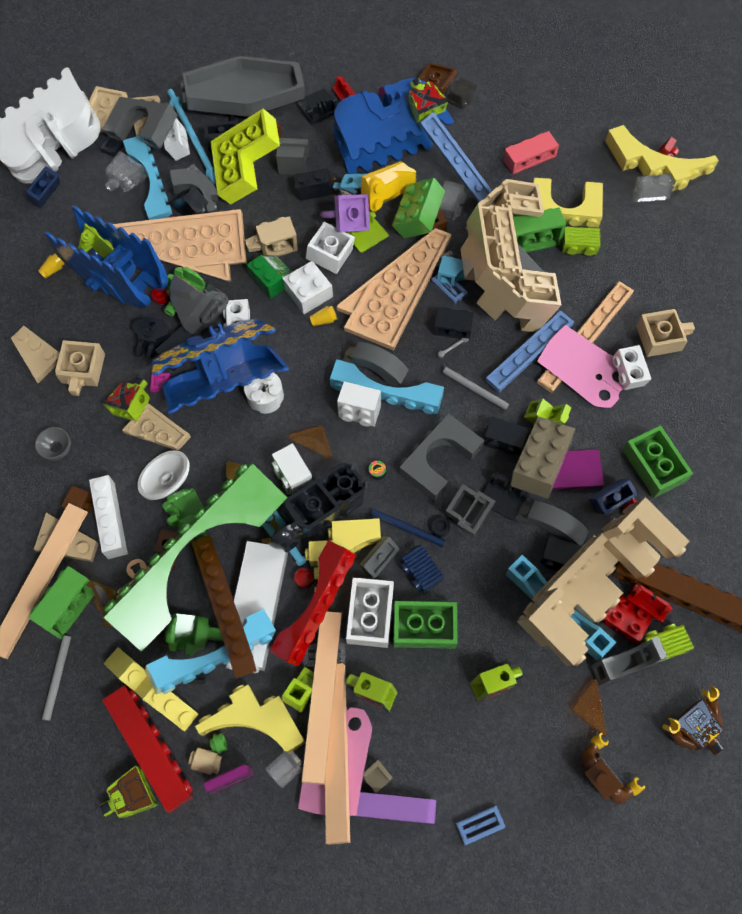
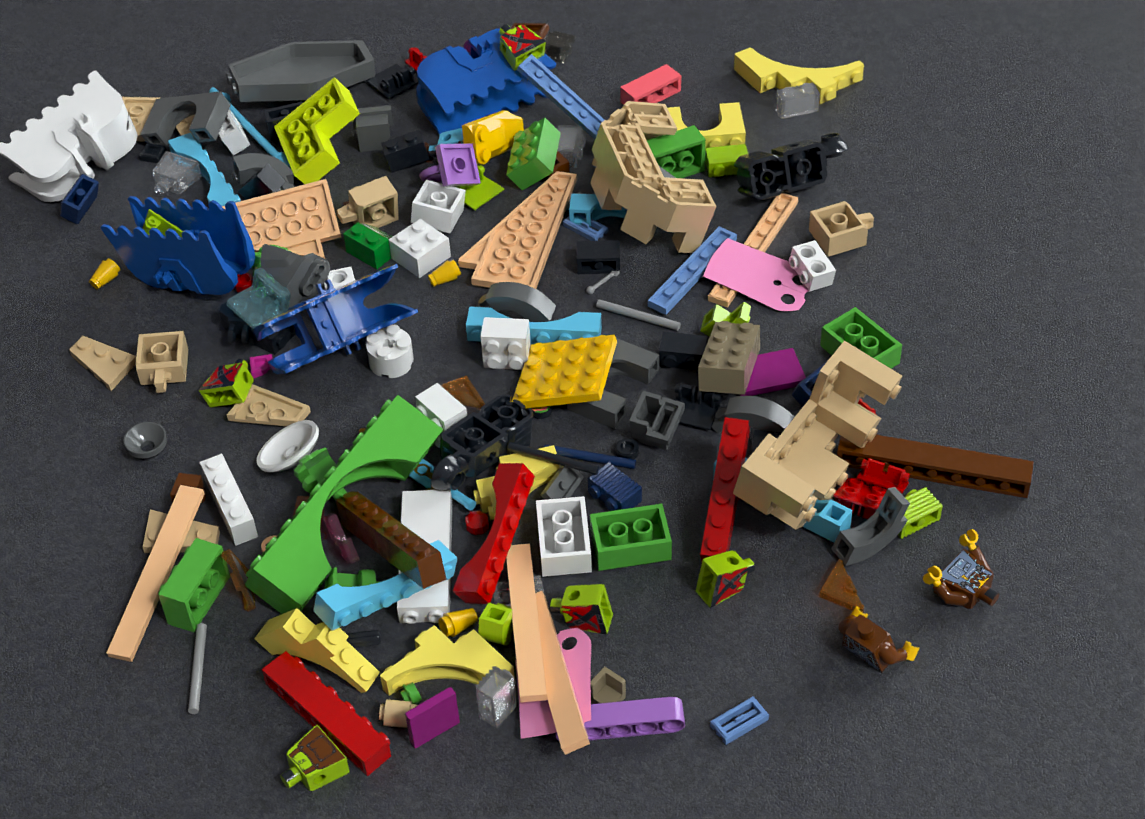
camera: 10 degrees left, 20 degrees down
(164, 327) = (260, 301): none -> clear light blue bracket
(192, 583) = (345, 543): none -> clear pink tile
(269, 677) = (457, 621): none -> yellow cone
(376, 534) = (553, 458): none -> black bar
(403, 443) = (565, 371): none -> yellow plate
(512, 603) = (722, 500): none -> red brick
(633, 263) = (788, 167): none -> black brick
(668, 149) = (805, 61): red tile -> none

